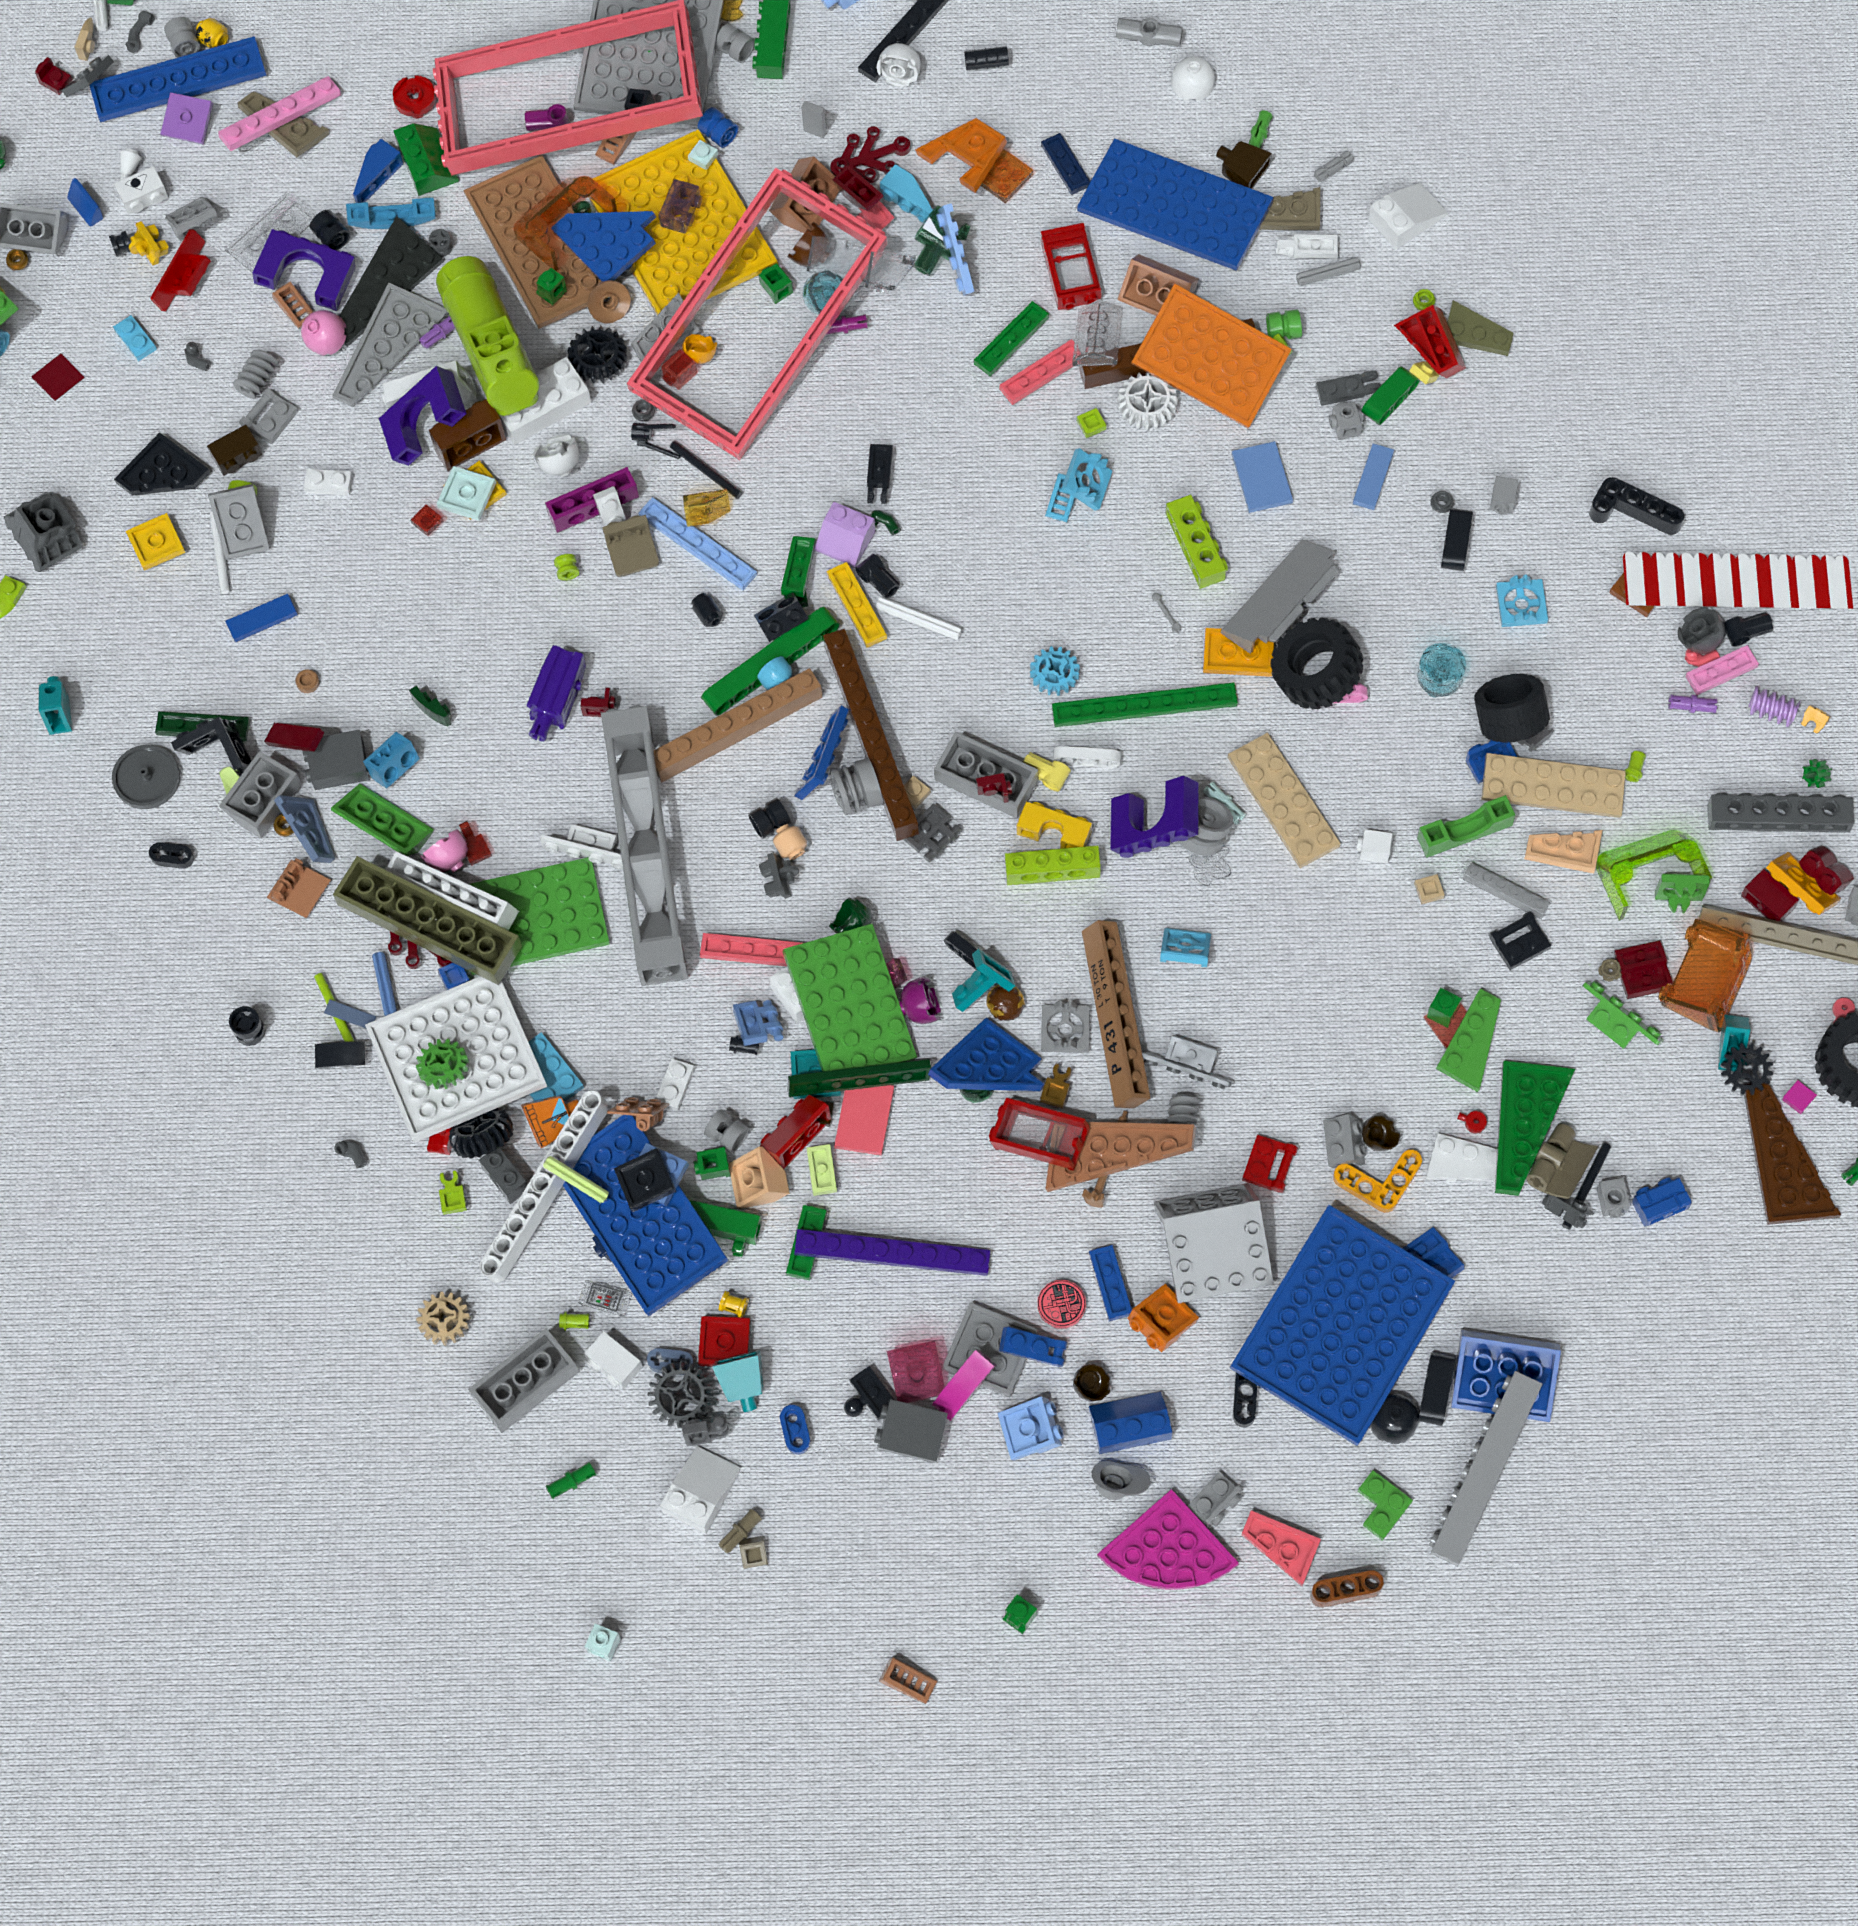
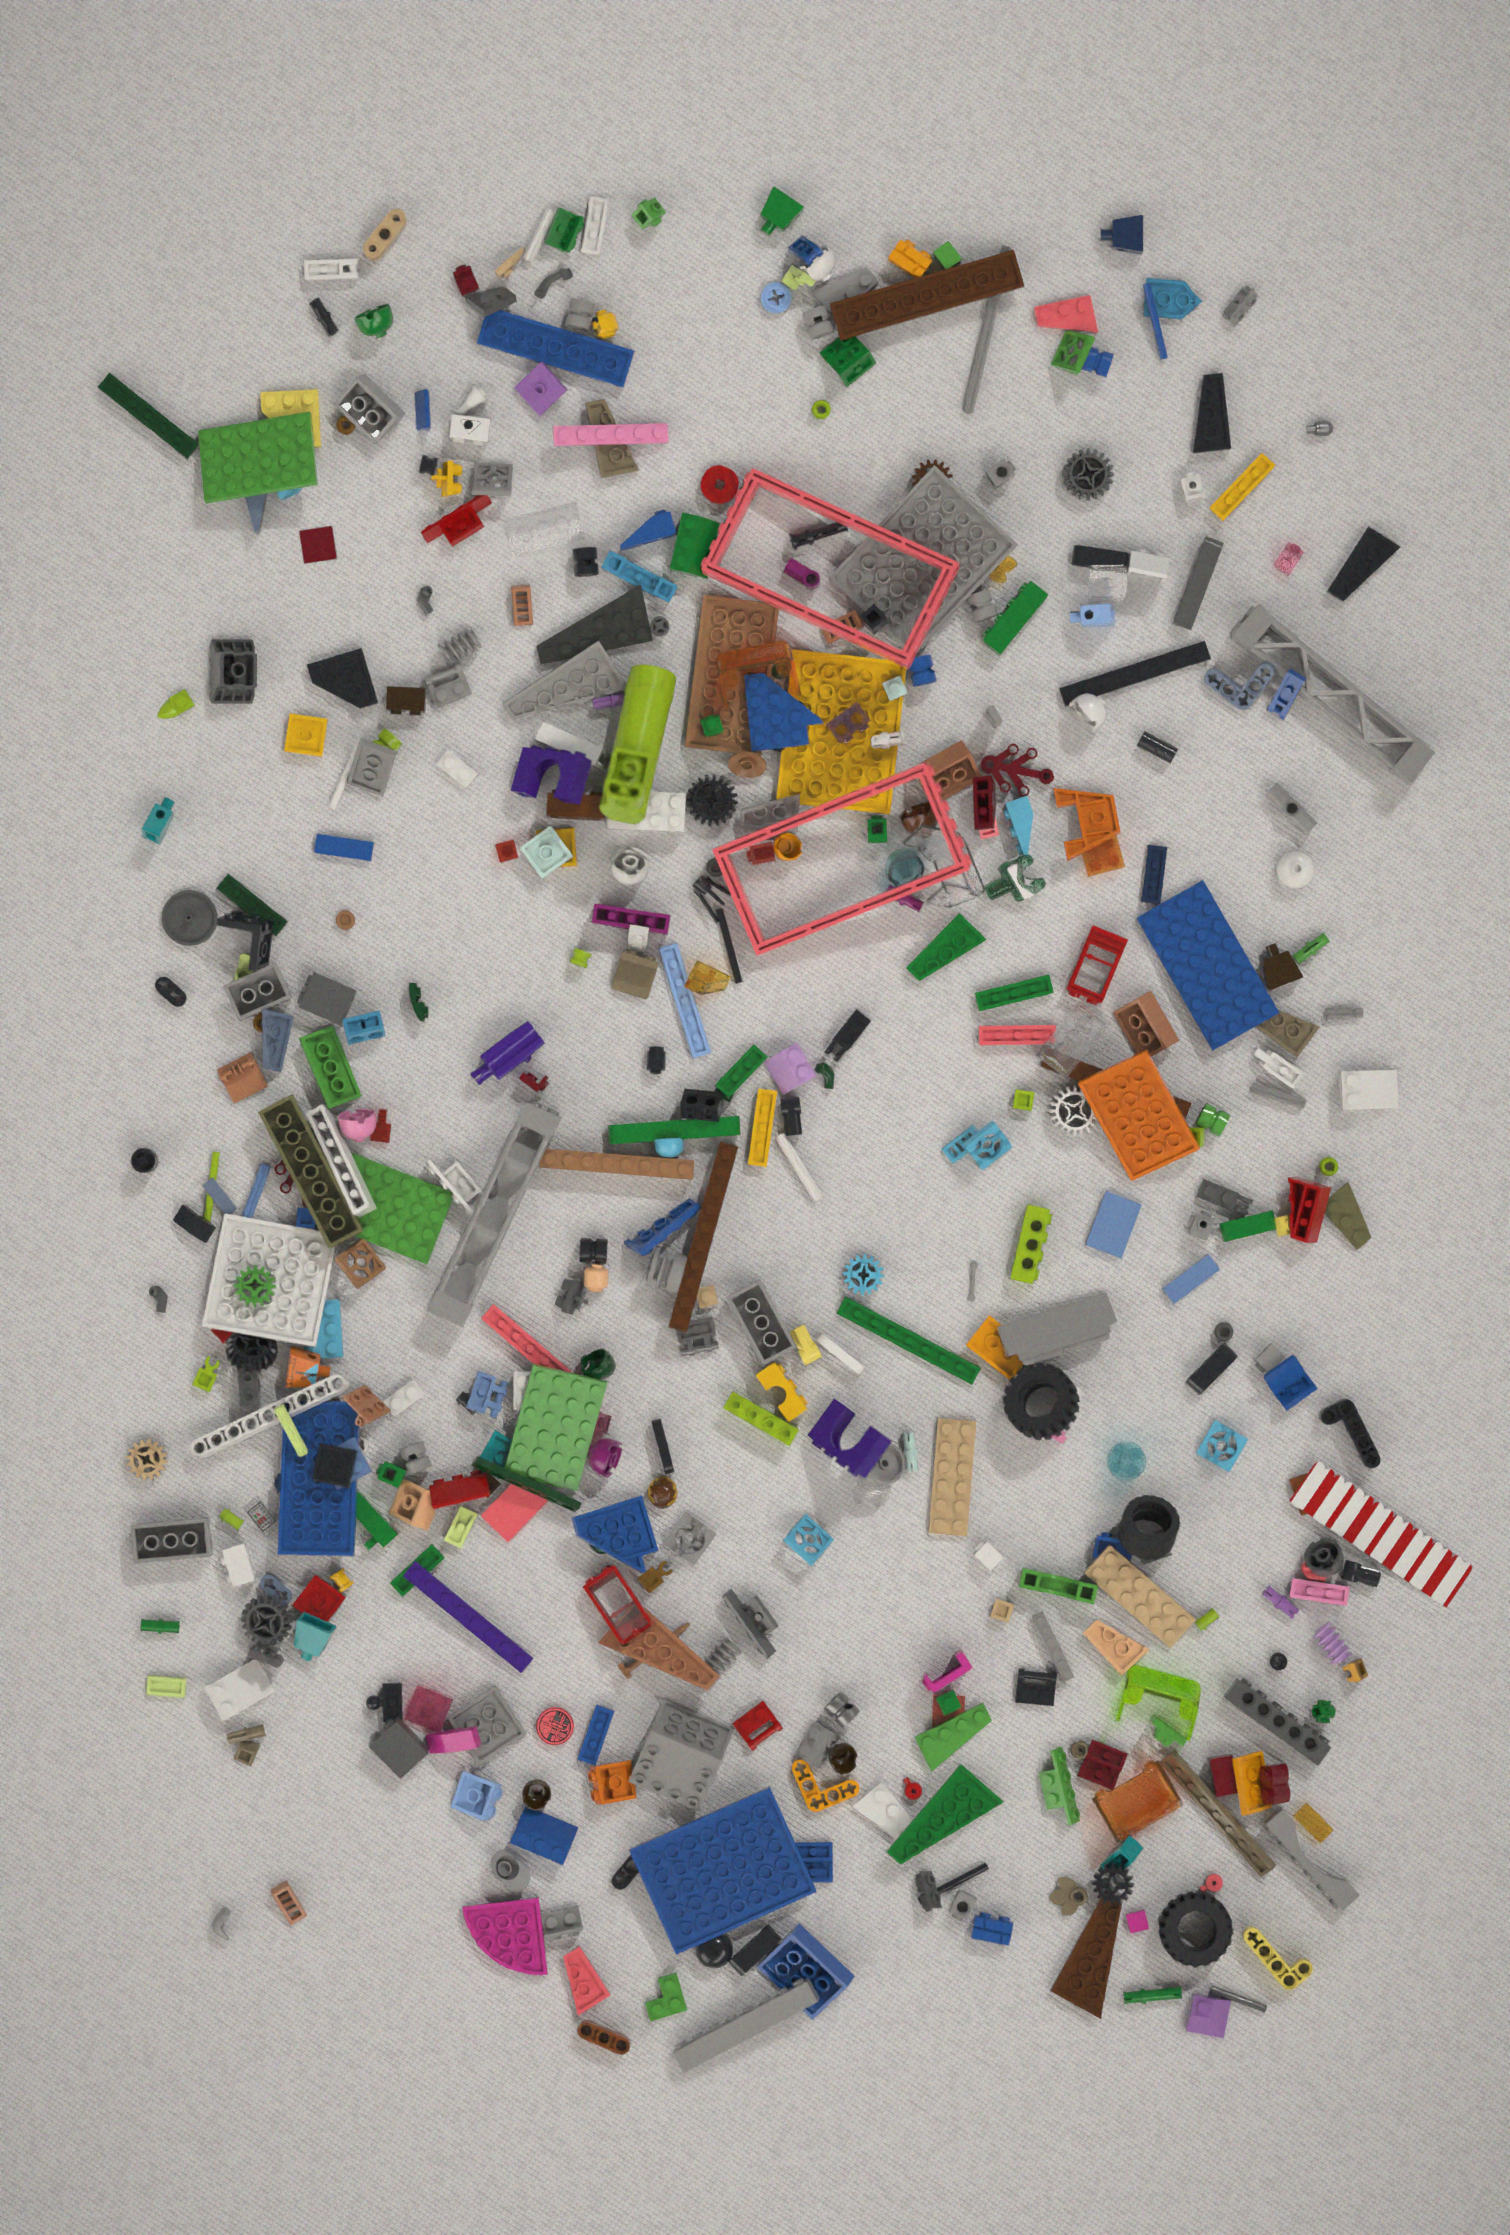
camera: 30 degrees right, 20 degrees up
(134, 338) = (391, 551): medium azure plate -> none
(284, 249) = (541, 556): dark purple arch -> none
(294, 737) = (307, 964): dark red tile -> none
(323, 332) = (528, 646): bright pink cylinder -> none
(531, 85) = (809, 536): none -> black pin
(532, 968) = (363, 1246): none -> medium nougat piece
(602, 1642) = (112, 1748): light aqua brick -> none
(619, 1540) = (166, 1686): none -> yellowish green tile
(728, 197) = (886, 740): none -> white piece
(795, 1430) = (326, 1691): blue plate -> none
(845, 1755) = (218, 1921): none -> light grey hair
(917, 338) = (947, 946): none -> green wing
(951, 230) = (1020, 895): light blue wing -> none
(986, 975) = (656, 1472): teal bracket -> none
(992, 784) = (754, 1340): dark red bracket -> none
(1020, 1614) = (387, 1911): green brick -> none
(1032, 1346) = (514, 1744): blue plate -> none
(1115, 1014) = (727, 1555): medium nougat brick -> none
(1343, 1087) = (841, 1709): none -> flat silver wheel
(1427, 957) = (950, 1675): none -> dark pink panel
(1538, 502) = (1289, 1382): none -> blue bracket
(1560, 1163) = (945, 1861): dark tan panel -> none
(1708, 1121) = (1065, 1896): none -> dark tan plate
(1741, 758) = (1284, 1662): none -> black bush

